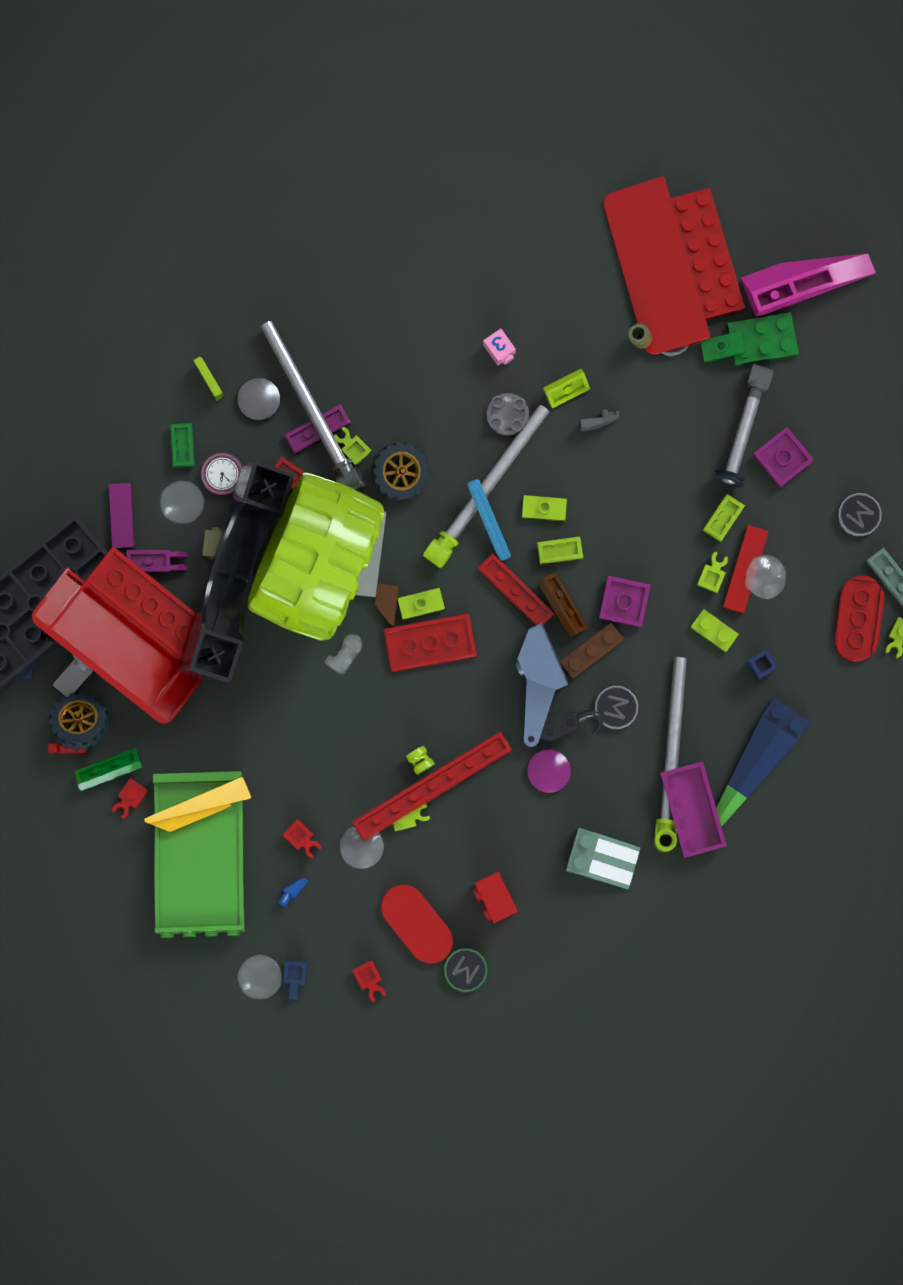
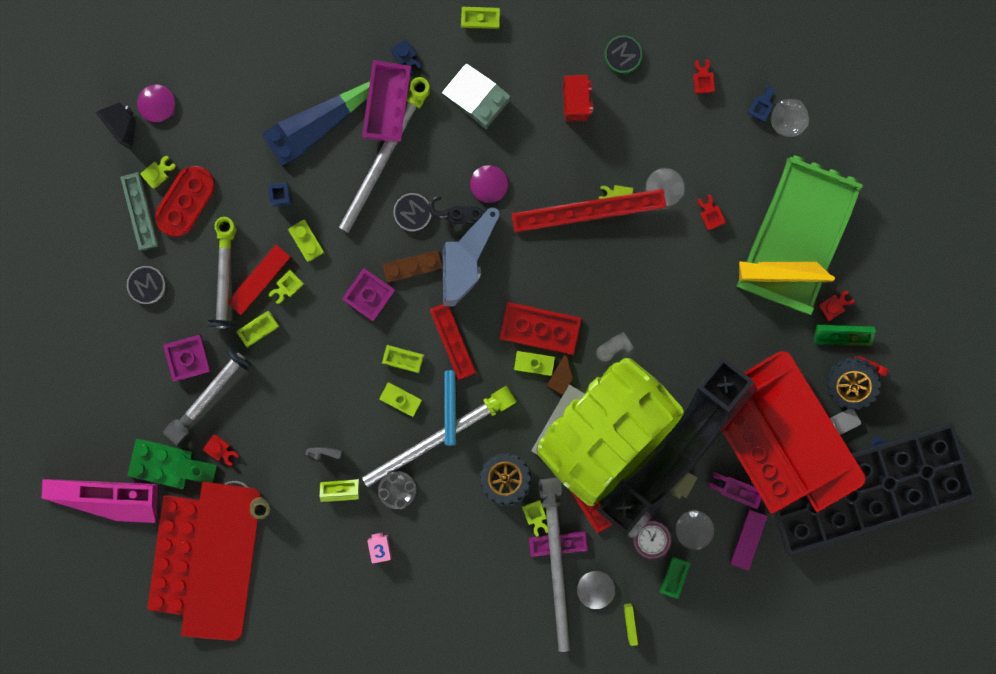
camera: 150 degrees left, 5 degrees up
(291, 891) = (736, 175): blue bar -> none
(417, 924) = (646, 107): red tile -> none
(418, 755) = (590, 240): lime wheel -> none
(562, 604) = (420, 313): reddish brown plate -> none
(634, 944) = (480, 17): none -> lime plate
(697, 871) = (404, 54): none -> dark blue plate
(710, 378) = (219, 448): none -> red plate
(765, 576) = (245, 265): clear dish -> none
(784, 558) = (223, 273): none -> piece

